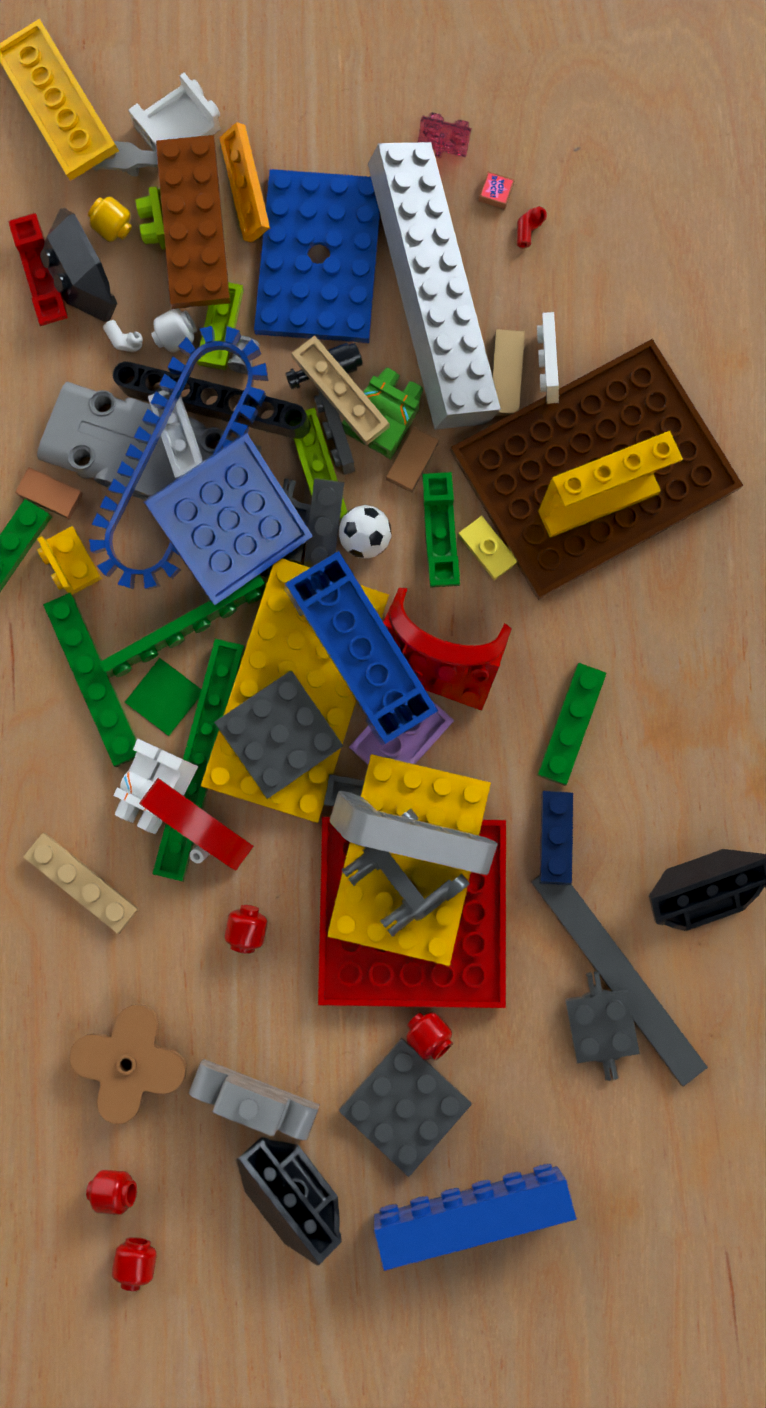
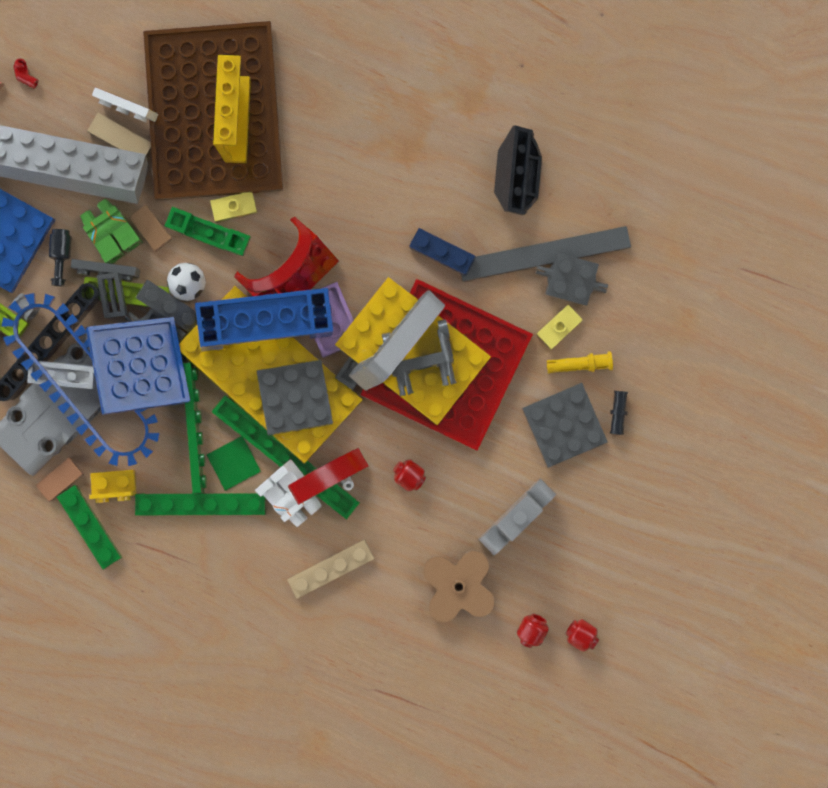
camera: 55 degrees left, 5 degrees up
(292, 1197) = (586, 519): black wedge -> none
(314, 457) = (103, 294): none -> dark grey tile
(340, 390) = (83, 253): tan plate -> none
(429, 1036) = (528, 389): red head -> none
(455, 1173) = (618, 412): none -> black pin
(472, 1216) = (648, 411): blue brick -> none
(503, 1102) = (590, 363): none -> yellow pin
(531, 1038) = (559, 327): none -> light yellow plate
(571, 724) = (374, 207): green plate -> none

